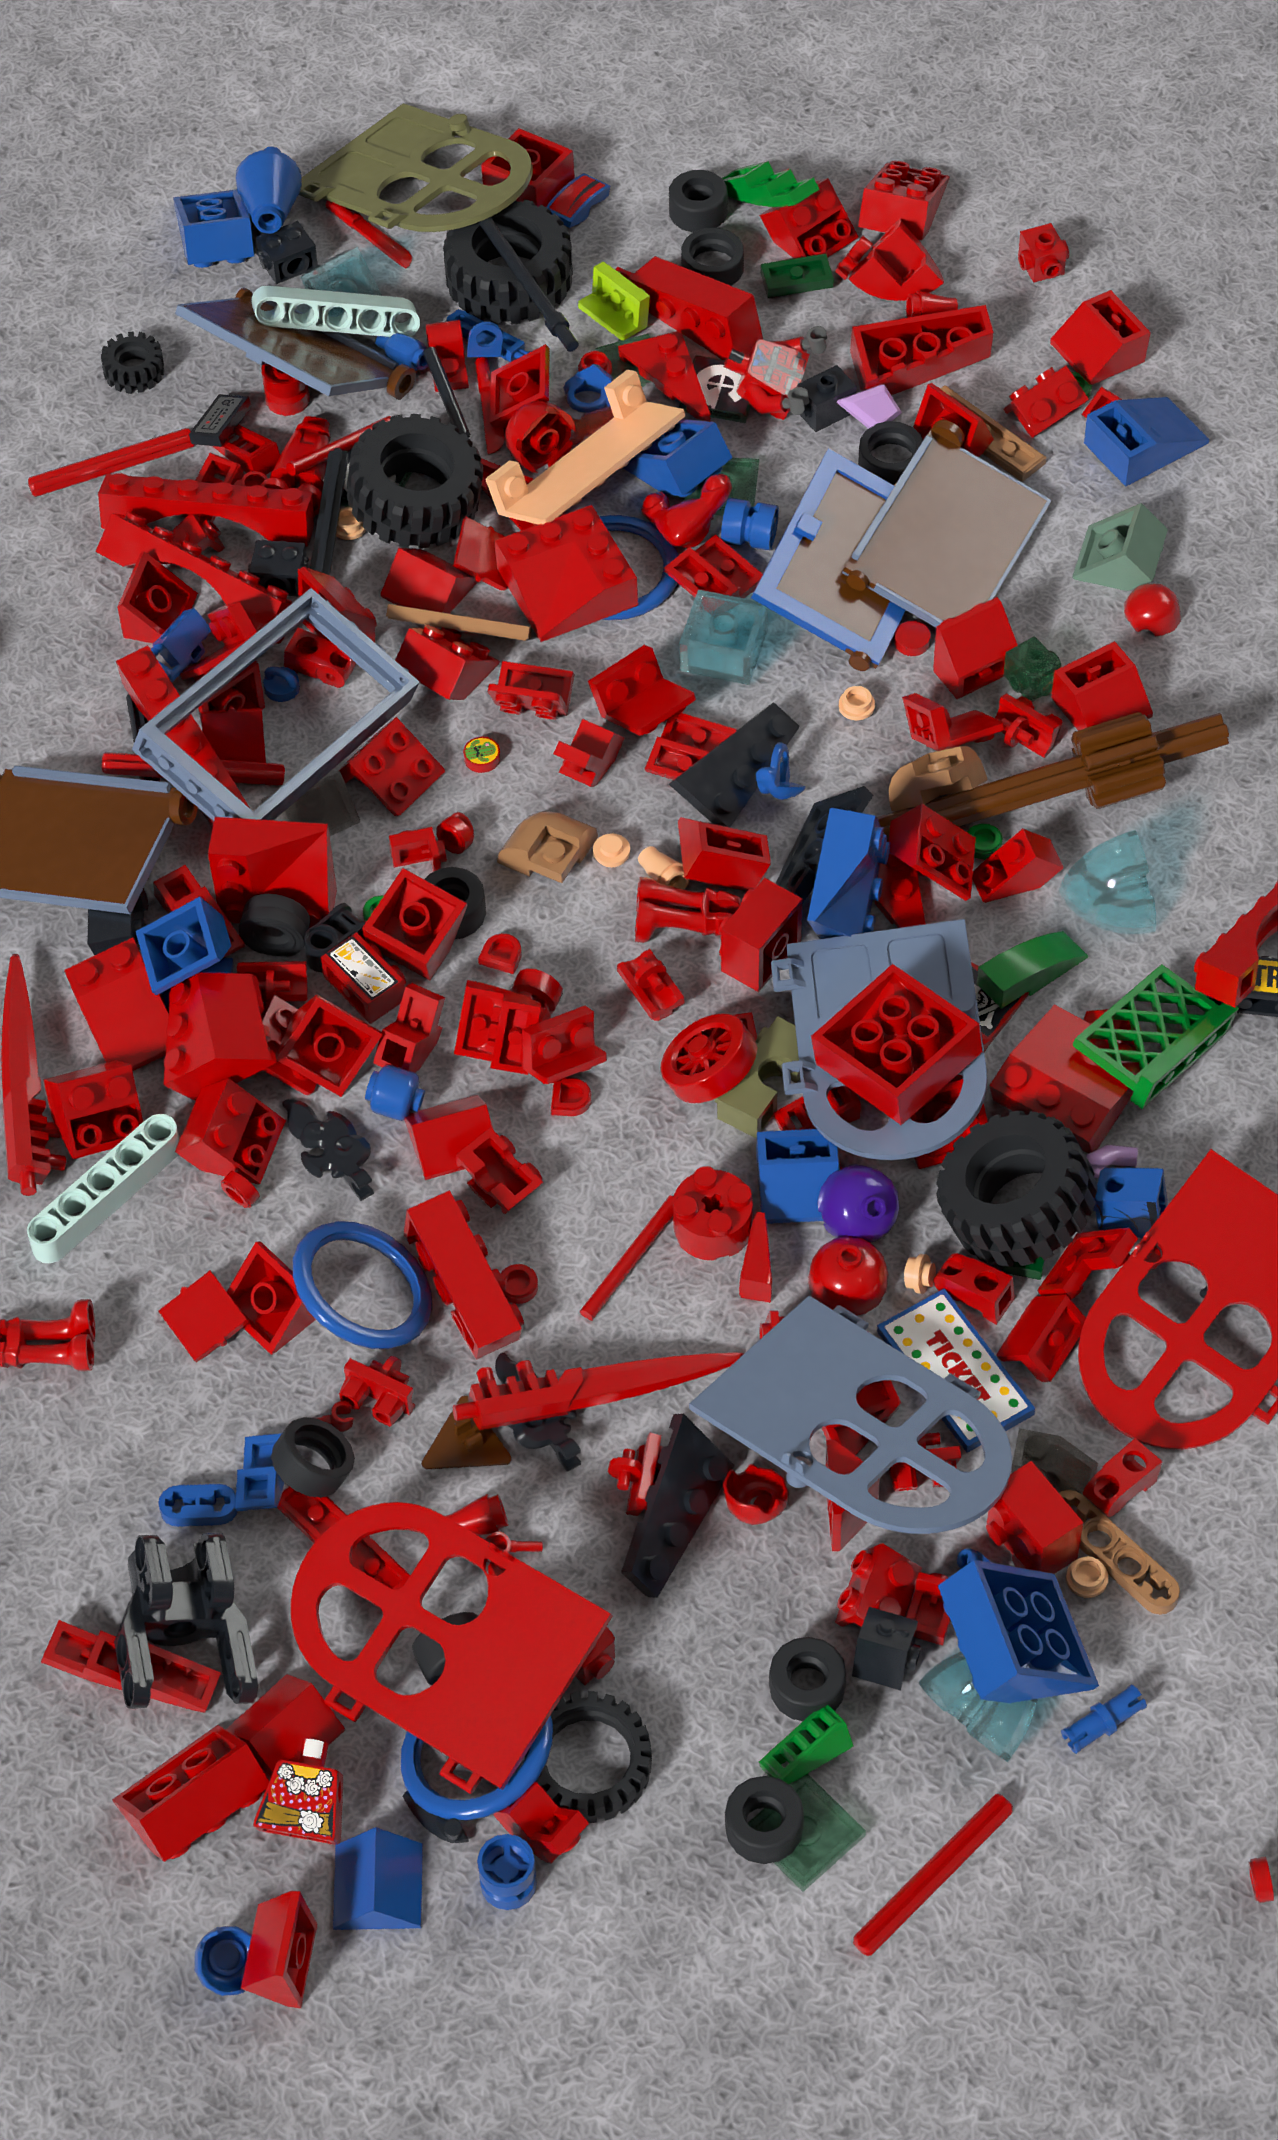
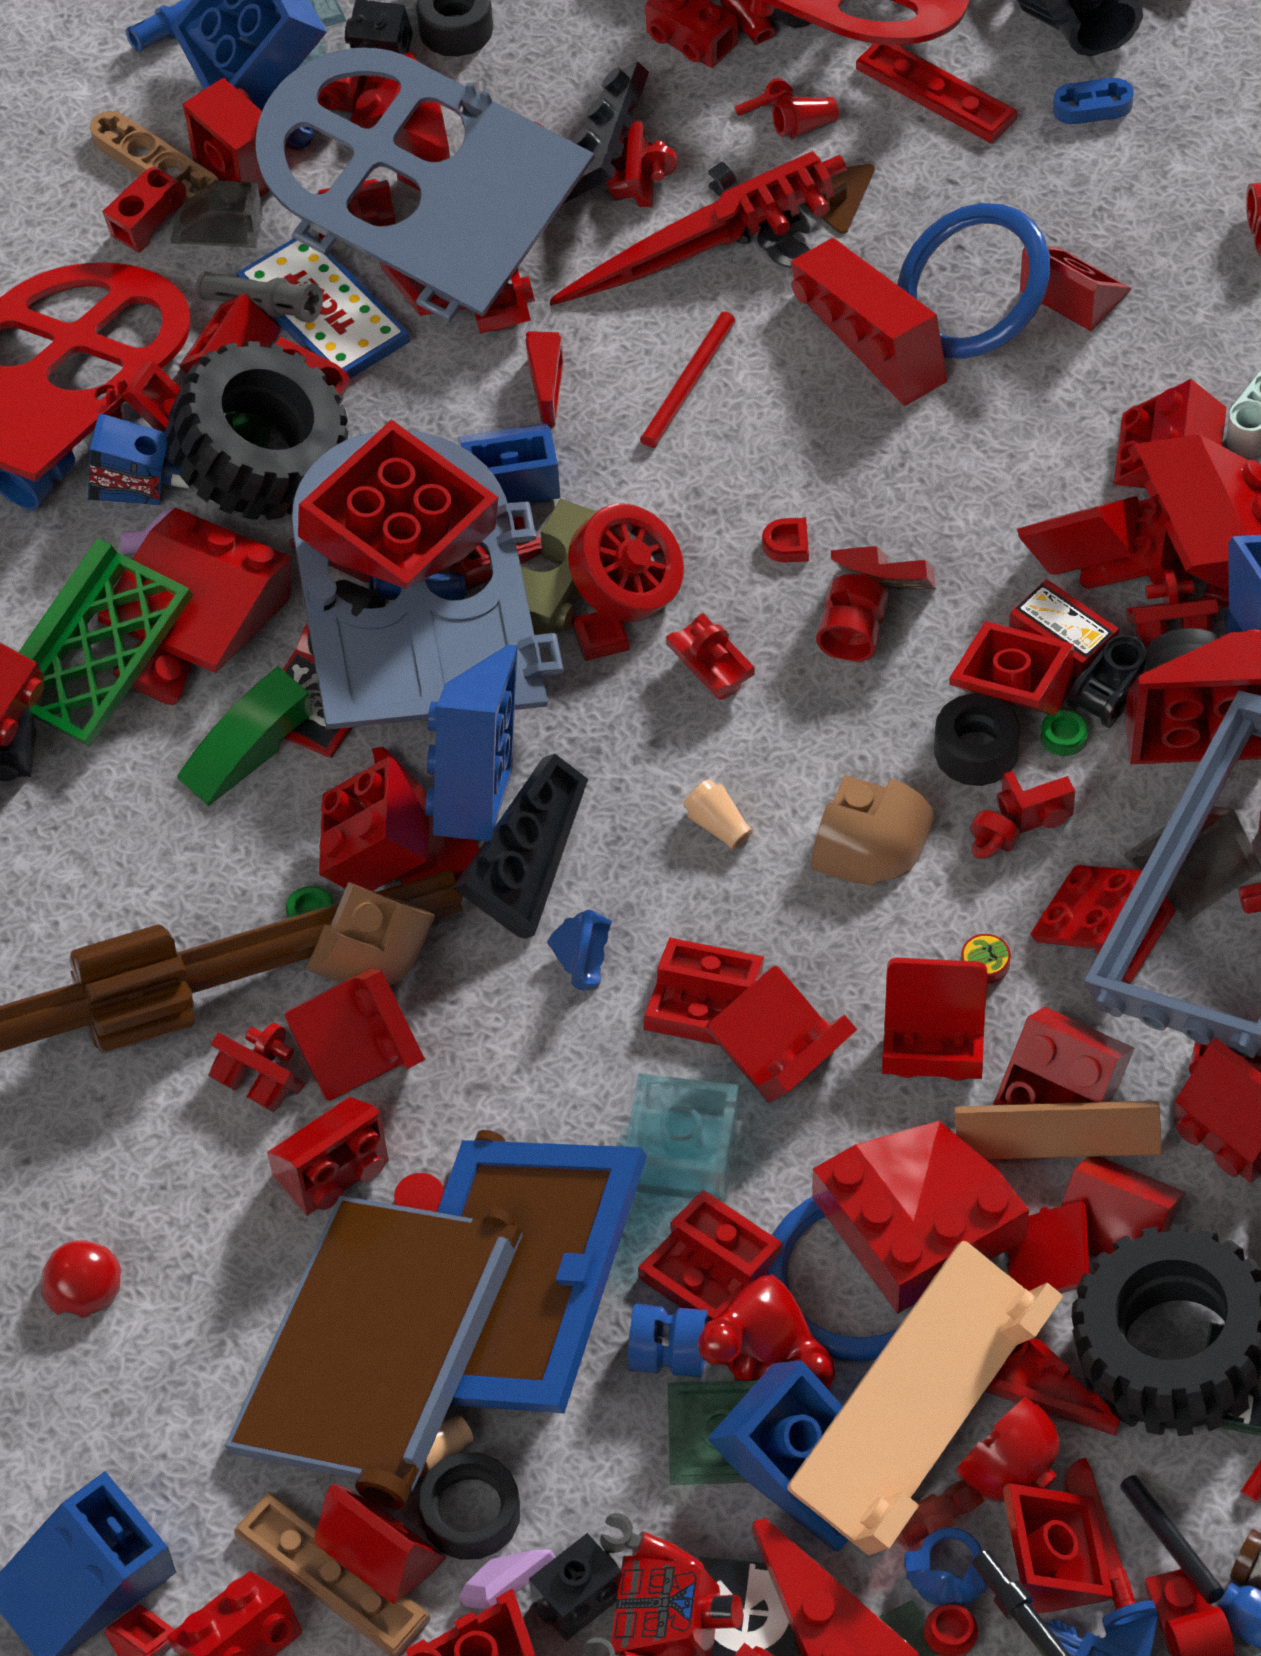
camera: 175 degrees right, 0 degrees up
(203, 1316) = (1142, 266): red piece -> none
(240, 1189) = (1139, 384): red tile -> none
(258, 1481) = (1033, 129): blue slope -> none
(300, 1473) = (959, 113): black tyre -> none
(341, 1424) = (971, 193): red hand -> none
(342, 1146) = (1037, 451): black piece -> none
(382, 1383) = (920, 206): red hips -> none
(394, 1092) = (991, 503): blue head -> none
(414, 1032) = (988, 565): red brick -> none
(444, 1131) = (920, 483): red slope -> none
(496, 1173) = (844, 428): red cylinder -> none
(501, 953) = (903, 699): red tile -> none
(520, 1283) = (807, 339): red tile -> none
(561, 1046) = (798, 562): red bracket -> none
(589, 753) = (842, 948): red brick -> none
(611, 850) = (789, 840): light nougat plate -> none
(650, 916) = (643, 770): red piece -> none
(712, 1214) = (600, 409): red brick -> none
(722, 854) = (643, 825): red slope -> none
(726, 776) = (637, 960): black wing -> none
(759, 933) = (582, 709): red brick -> none
(848, 1275) = (444, 377): red cylinder -> none
(856, 703) = (489, 1084): light nougat plate -> none
(859, 1203) = (437, 410): dark purple cylinder -> none
(919, 1273) = (364, 385): light nougat plate -> none
(996, 1354) = (275, 296): none -> dark grey pin
(1017, 867) = (262, 859): red slope -> none
(1031, 669) = (244, 1135): clear green brick -> none
(1087, 1577) = (176, 134): light nougat plate -> none
(1100, 688) = (157, 1116): red slope -> none
(1112, 887) = (142, 831): clear light blue brick -> none
(1122, 550) = (124, 1359): sand green slope -> none

